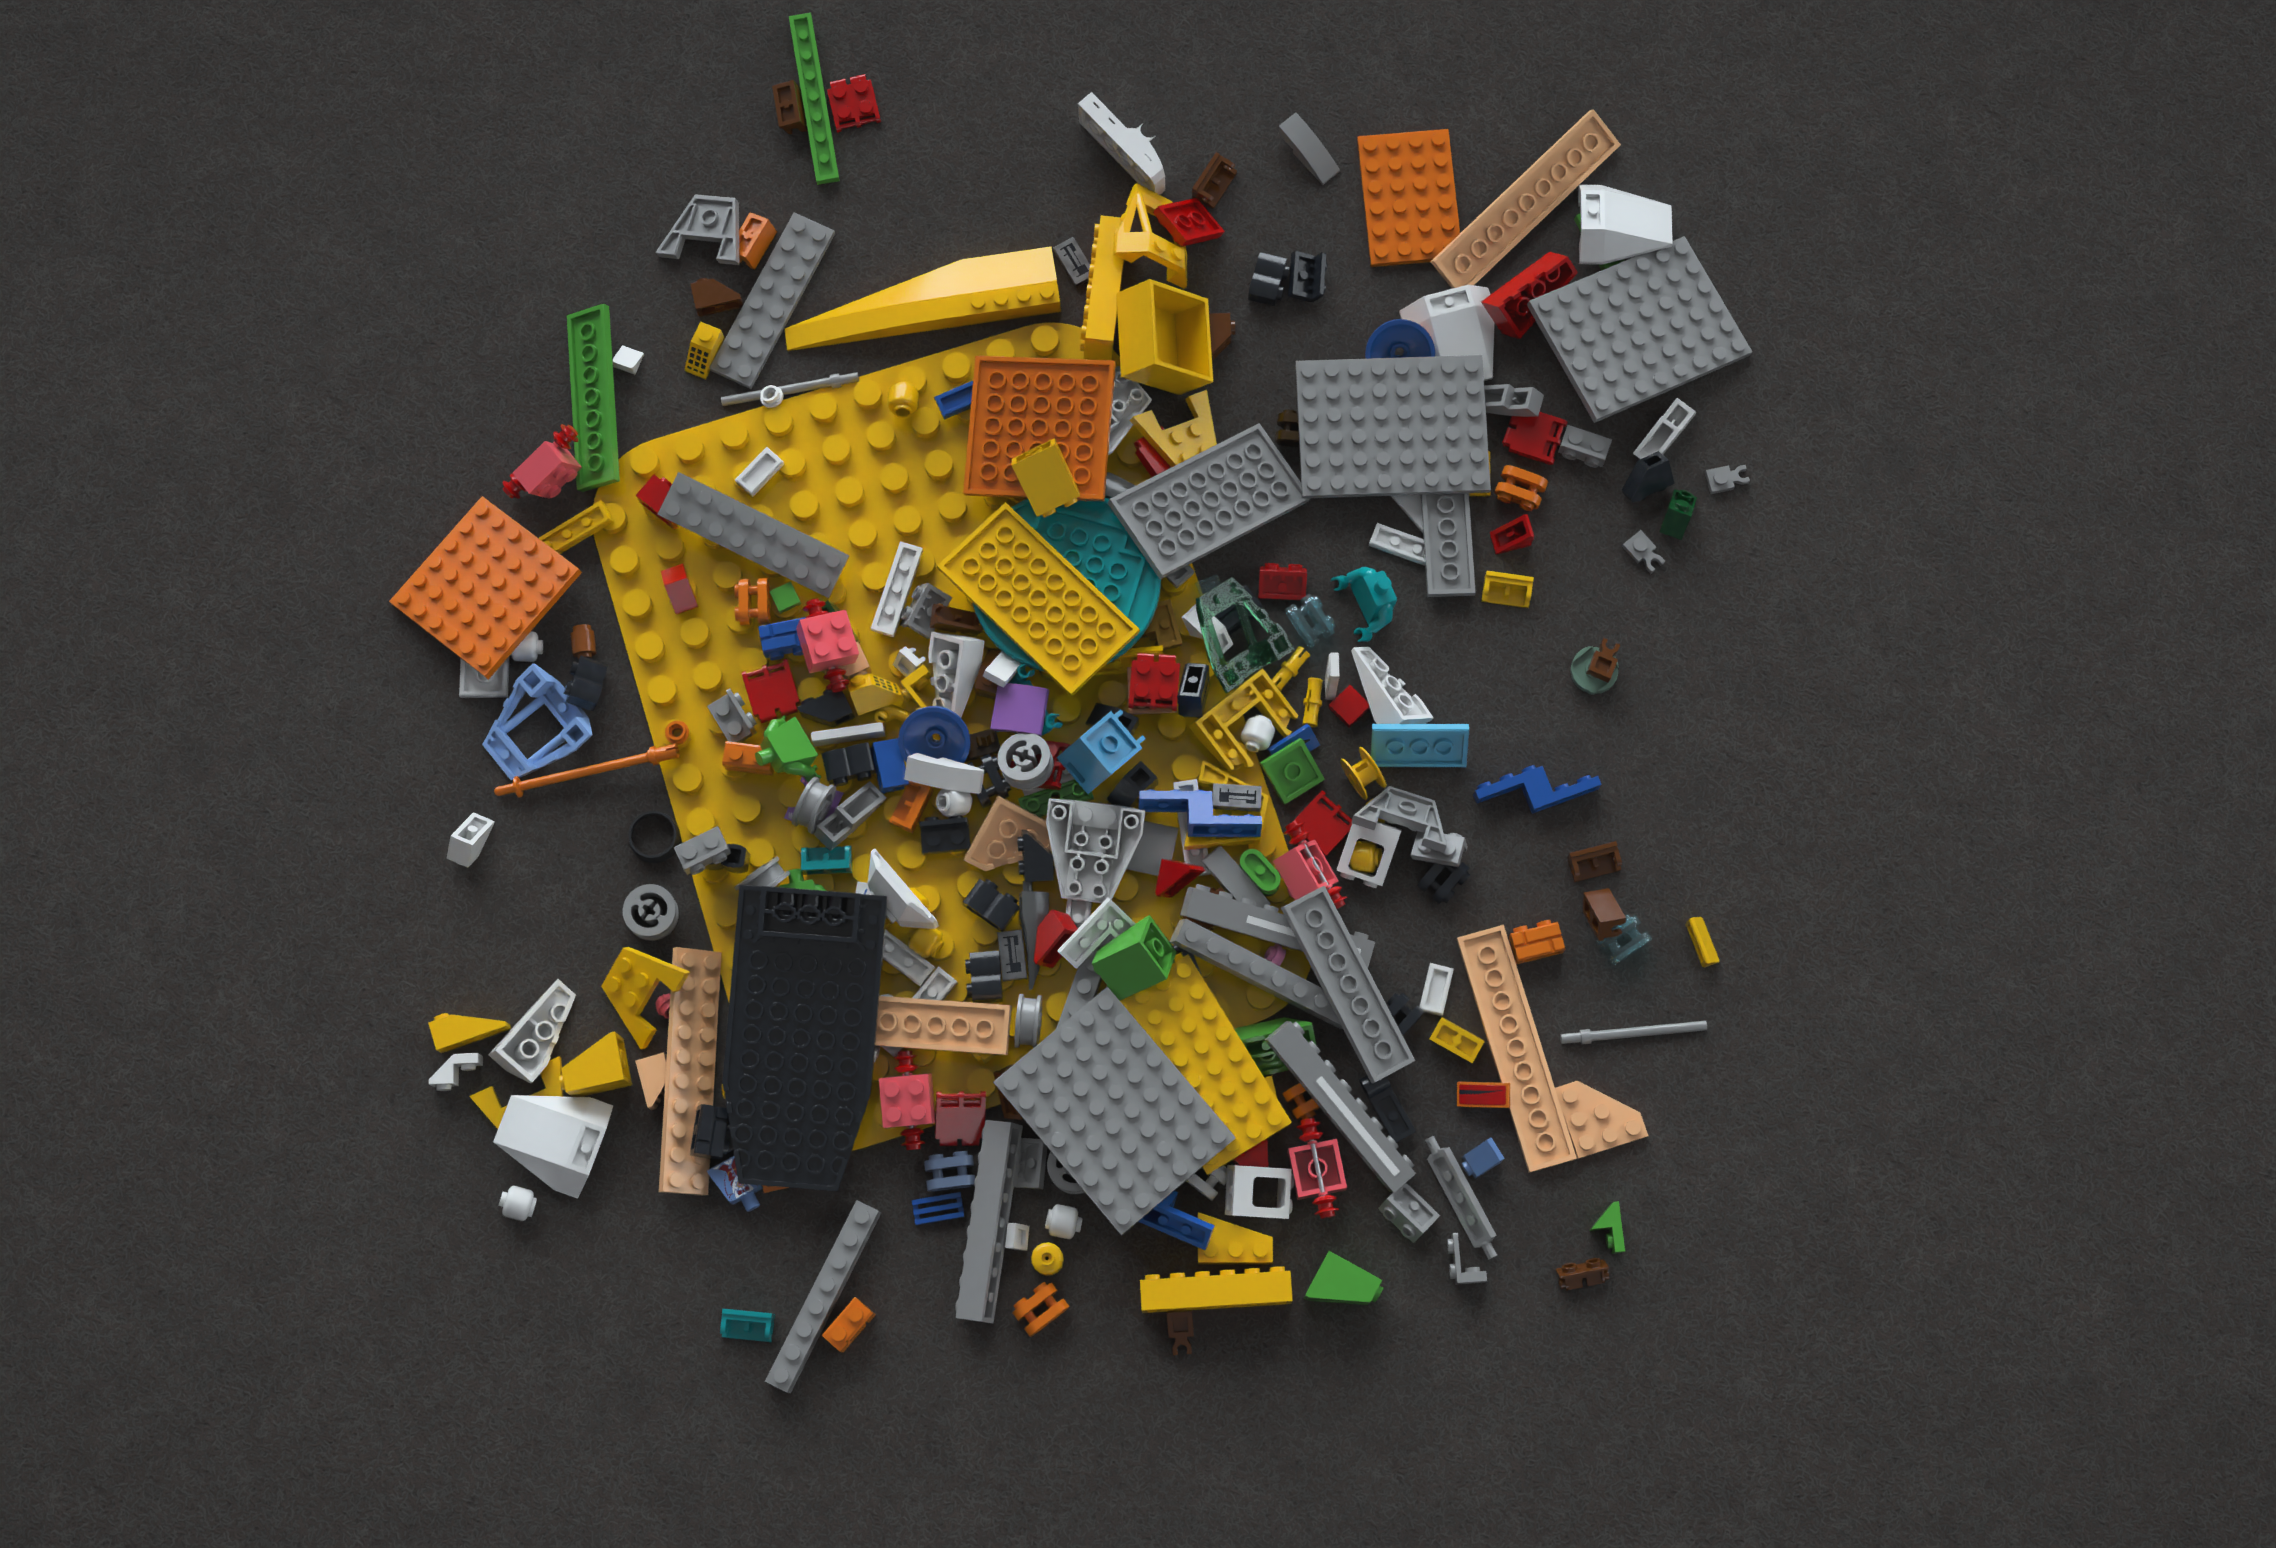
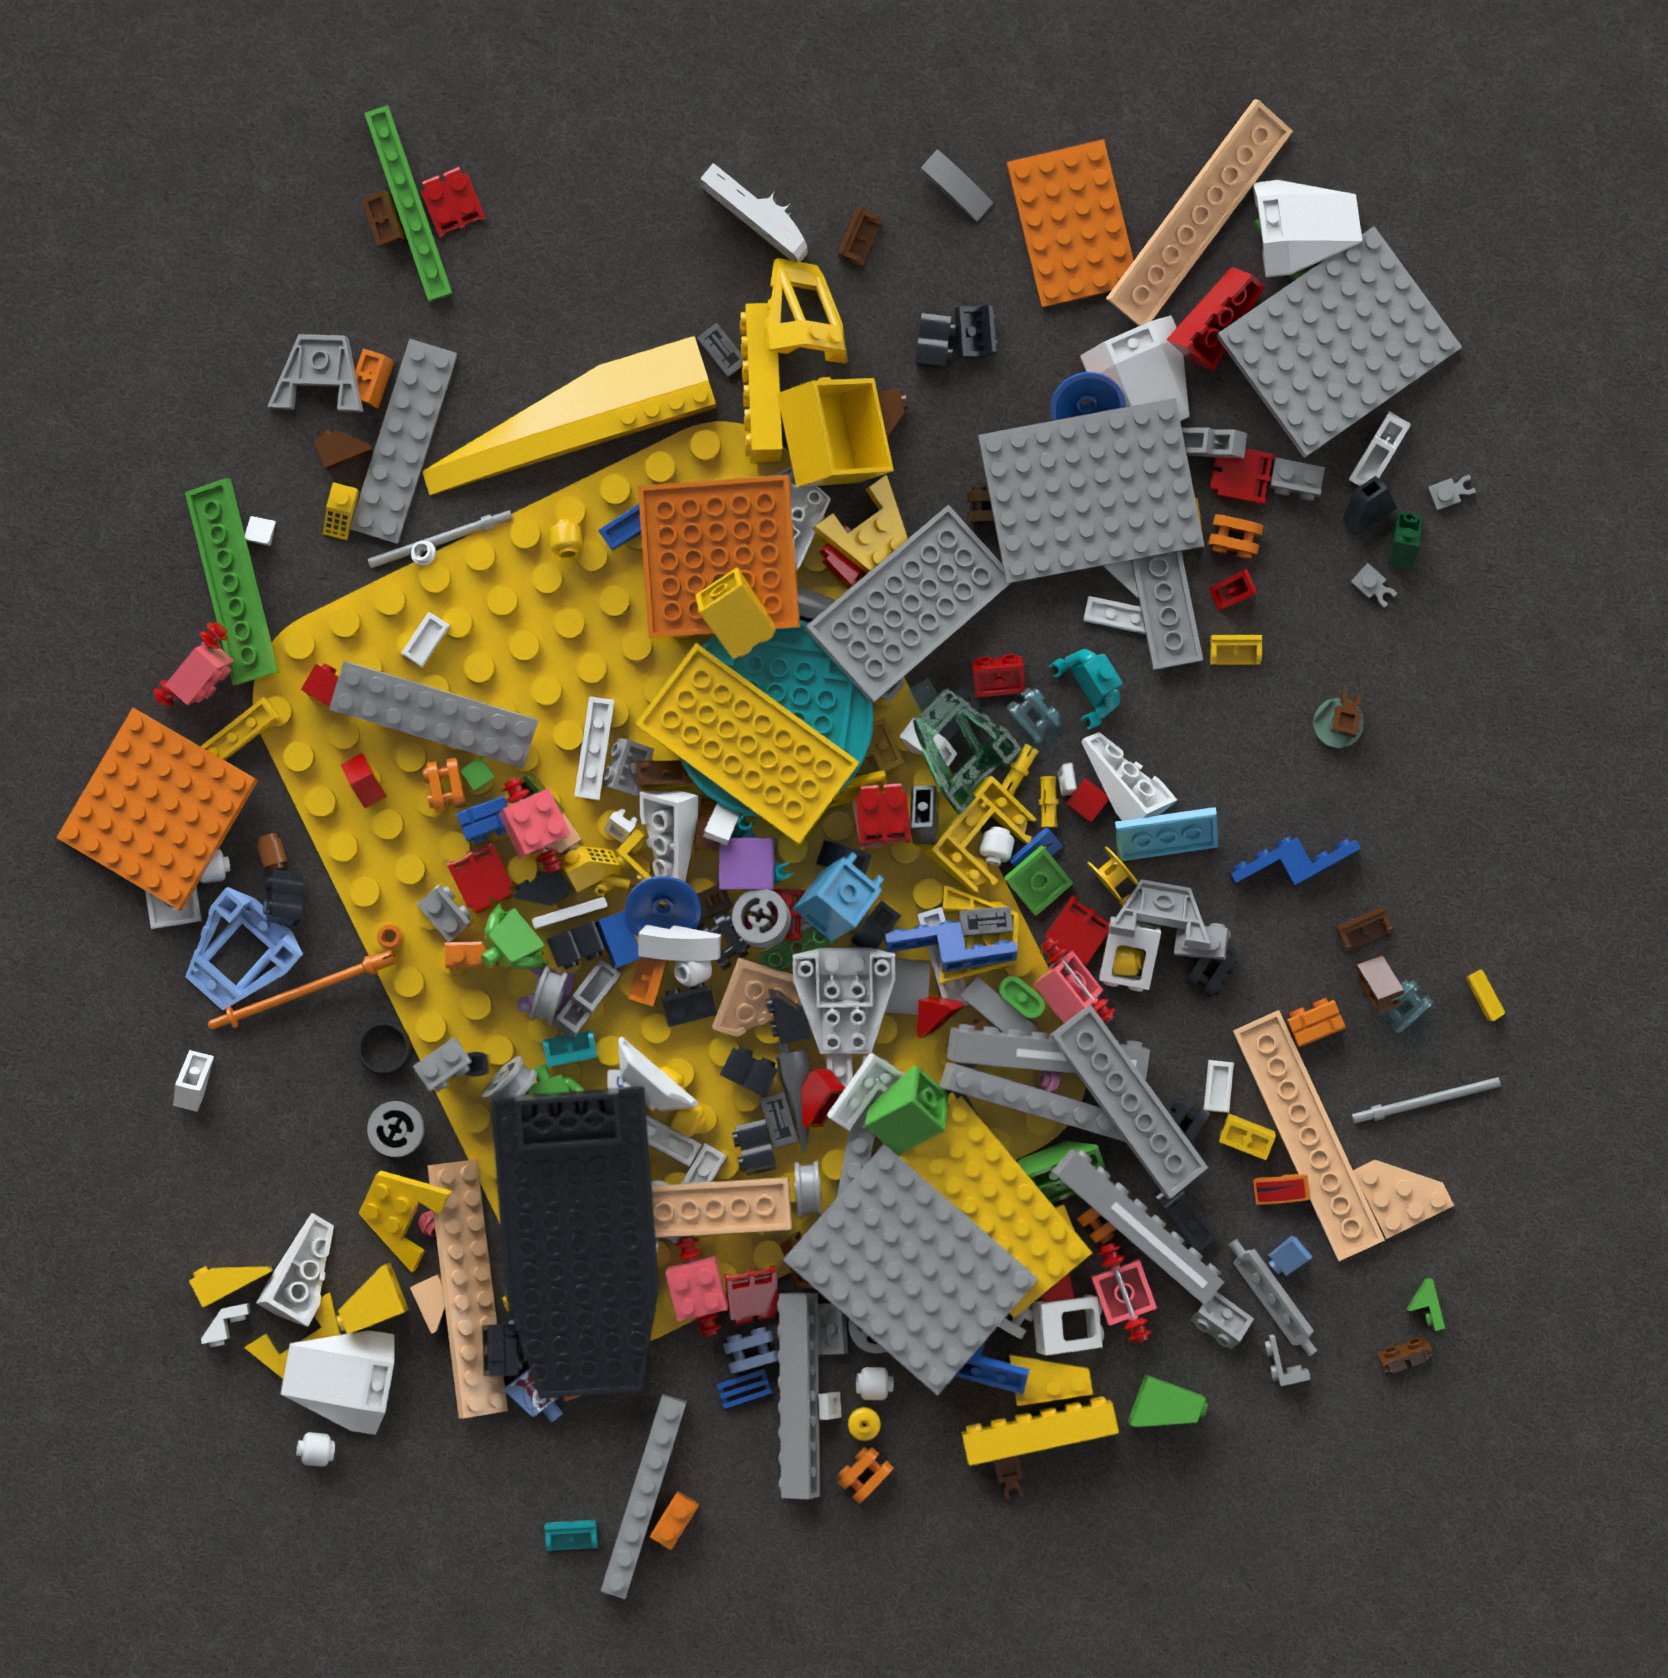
camera: 10 degrees left, 10 degrees up
(1188, 222) = (840, 292): red plate -> none

